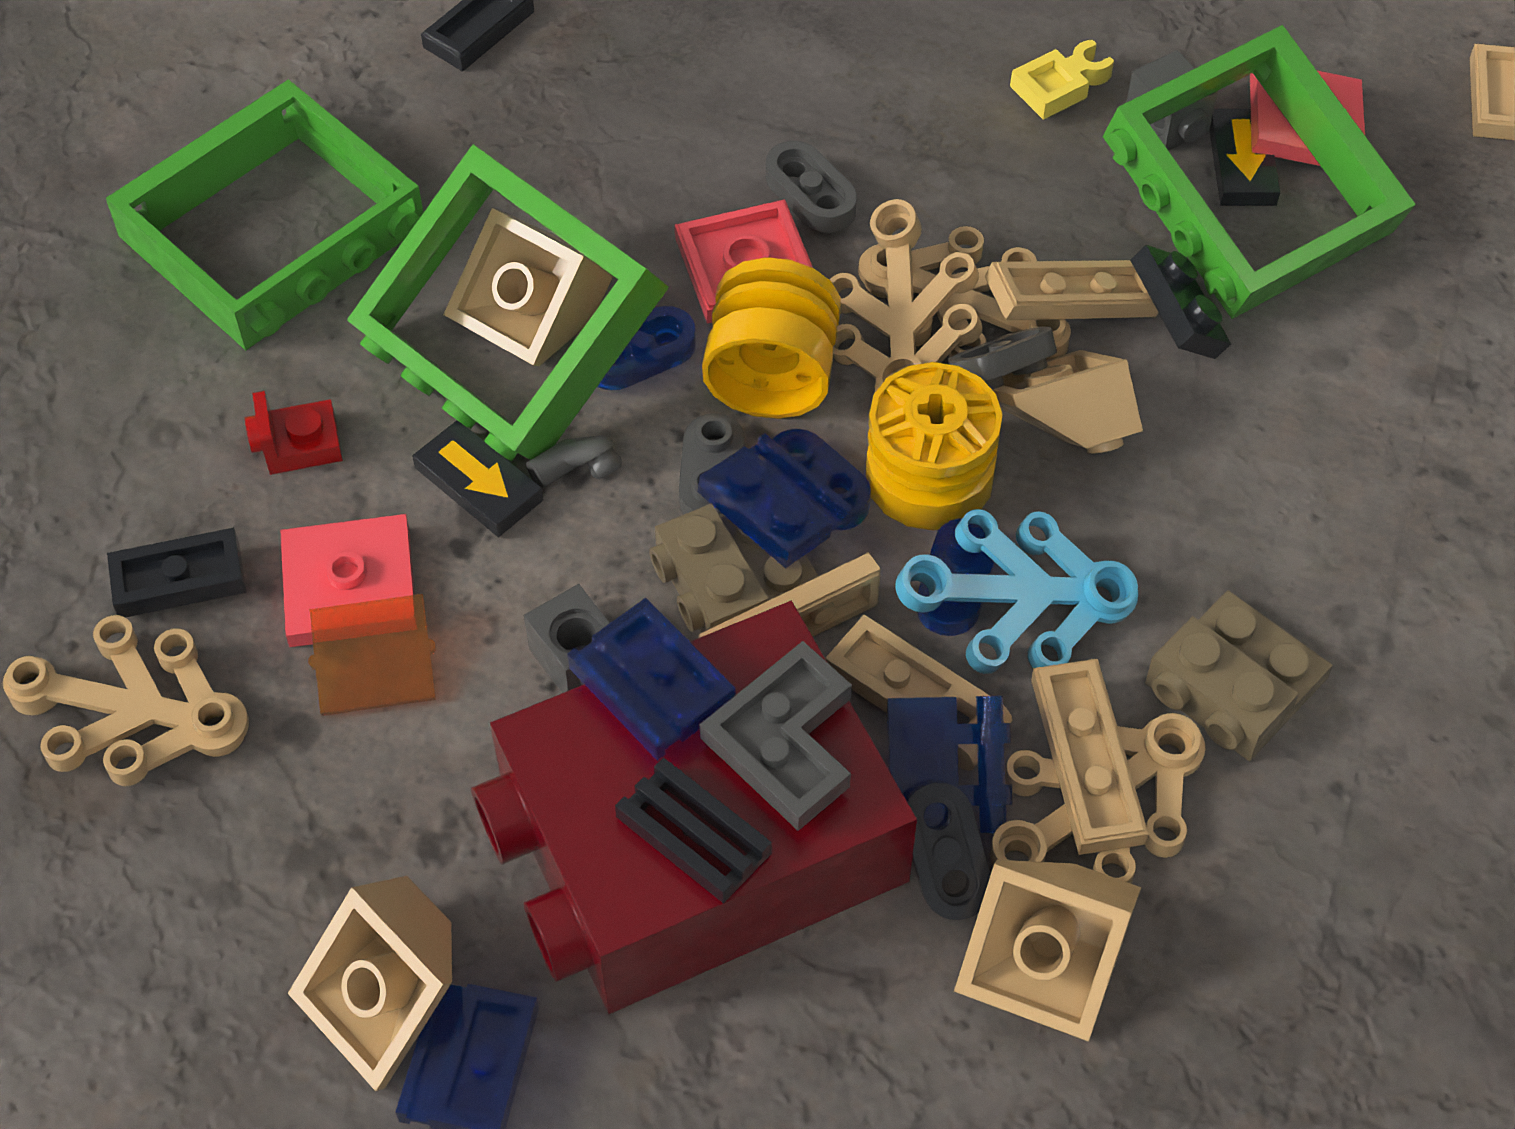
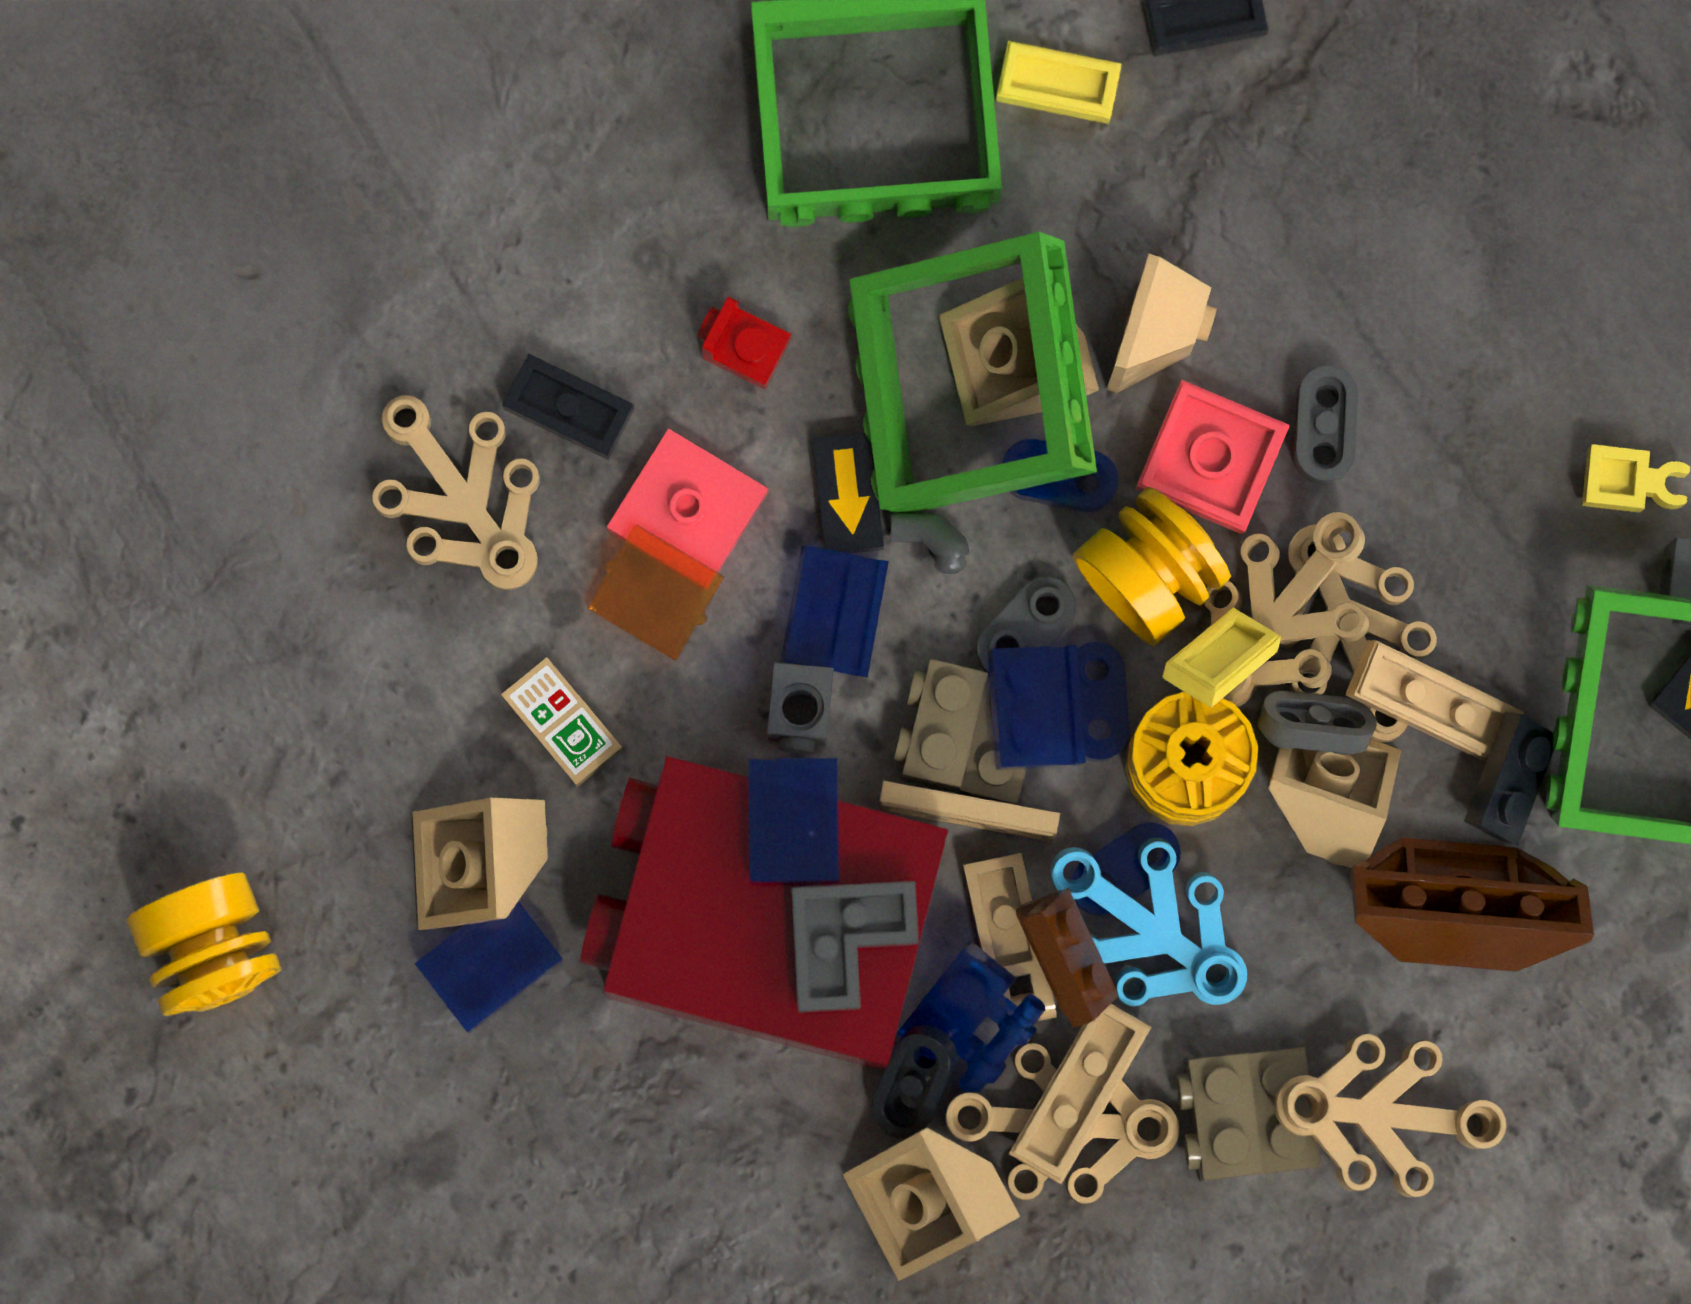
camera: 35 degrees right, 25 degrees up
(371, 815) = (562, 721): none -> tile
(408, 120) = (1058, 82): none -> light yellow tile
(539, 552) = (834, 611): none -> clear blue plate
(620, 189) = (1162, 323): none -> tan slope
(651, 793) = (739, 1006): black tile -> none
(888, 348) = (1221, 657): none -> light yellow tile
(976, 648) = (1067, 956): none -> reddish brown bracket
(1253, 393) = (1468, 905): none -> reddish brown wedge
(1287, 615) = (1377, 1115): none -> tan plant

